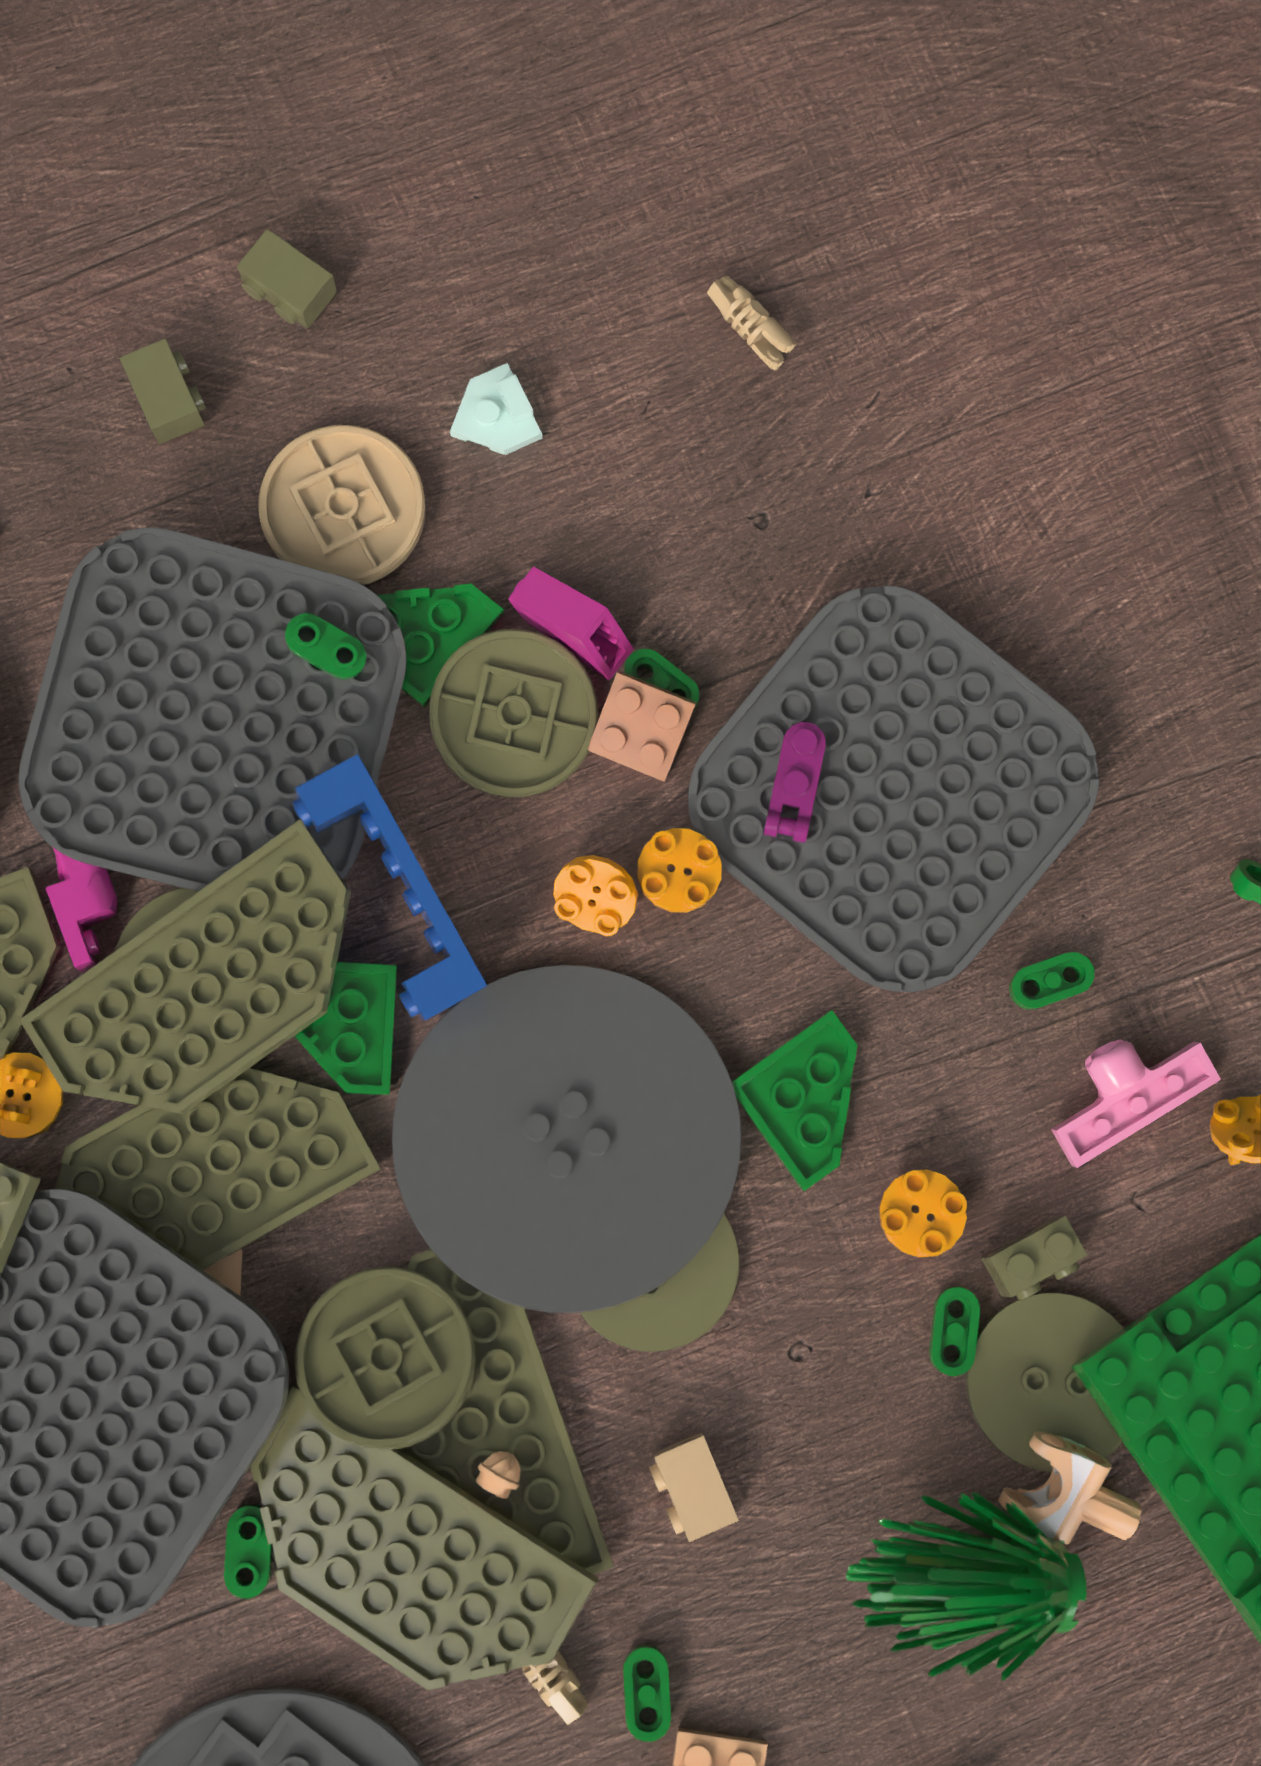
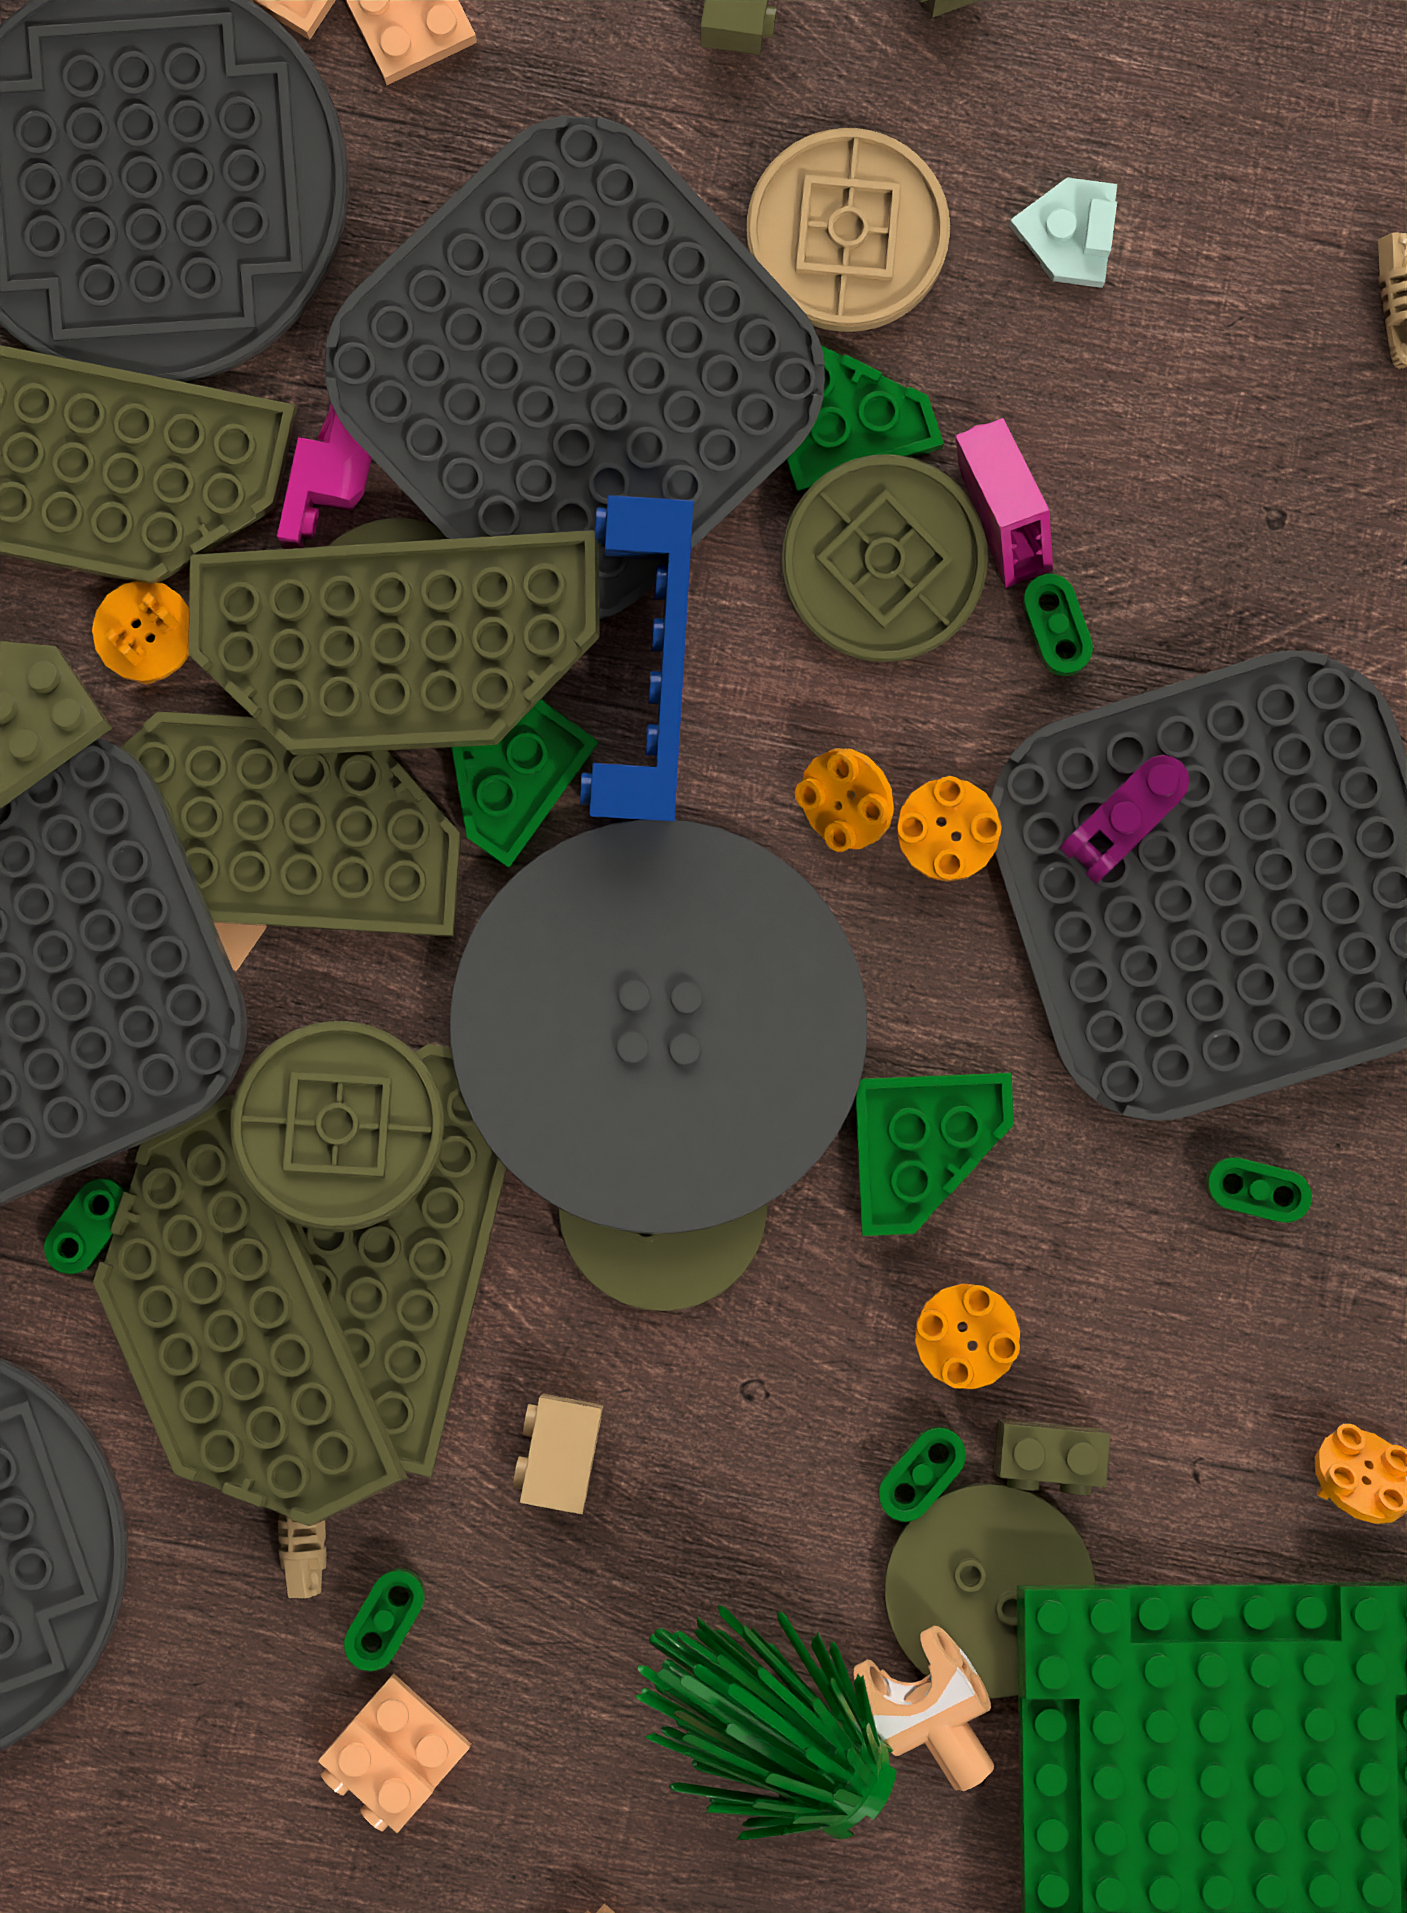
camera: 40 degrees right, 5 degrees up
(324, 647) = (733, 367): green plate -> none
(499, 1474) = (376, 1313): light nougat plate -> none
(641, 726) = (1007, 656): plate -> none
(1131, 1096) = (1261, 1359): bright pink plate -> none

